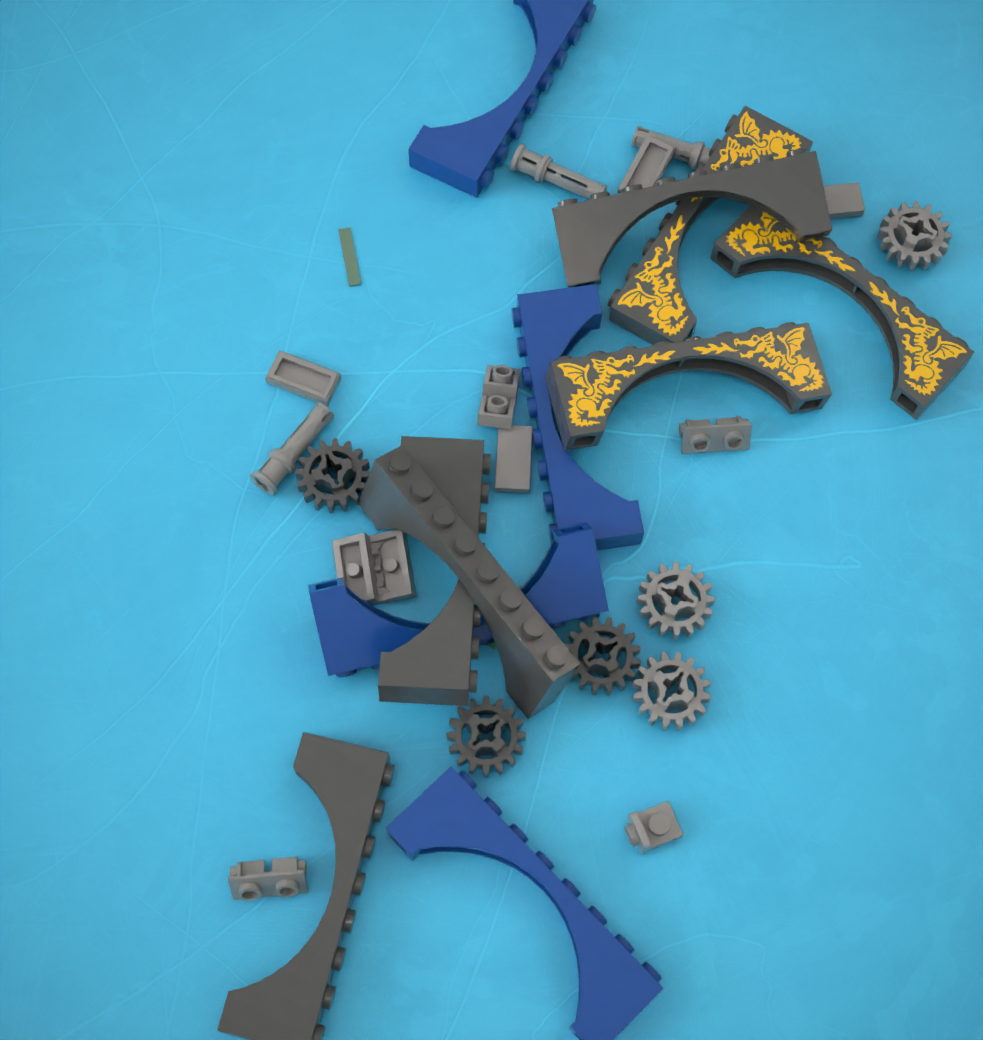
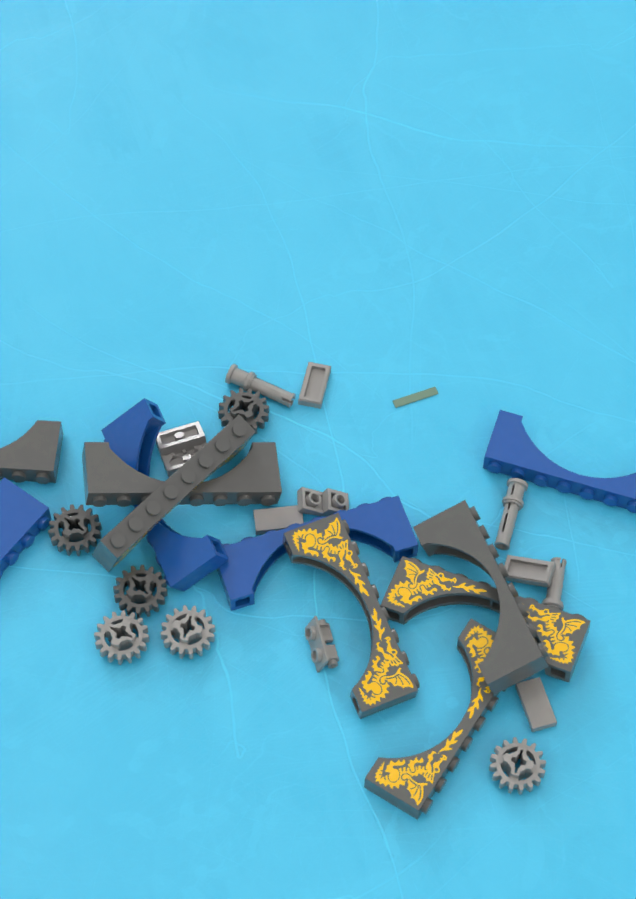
camera: 80 degrees right, 10 degrees down
(652, 827) = (26, 639): light grey bracket -> none

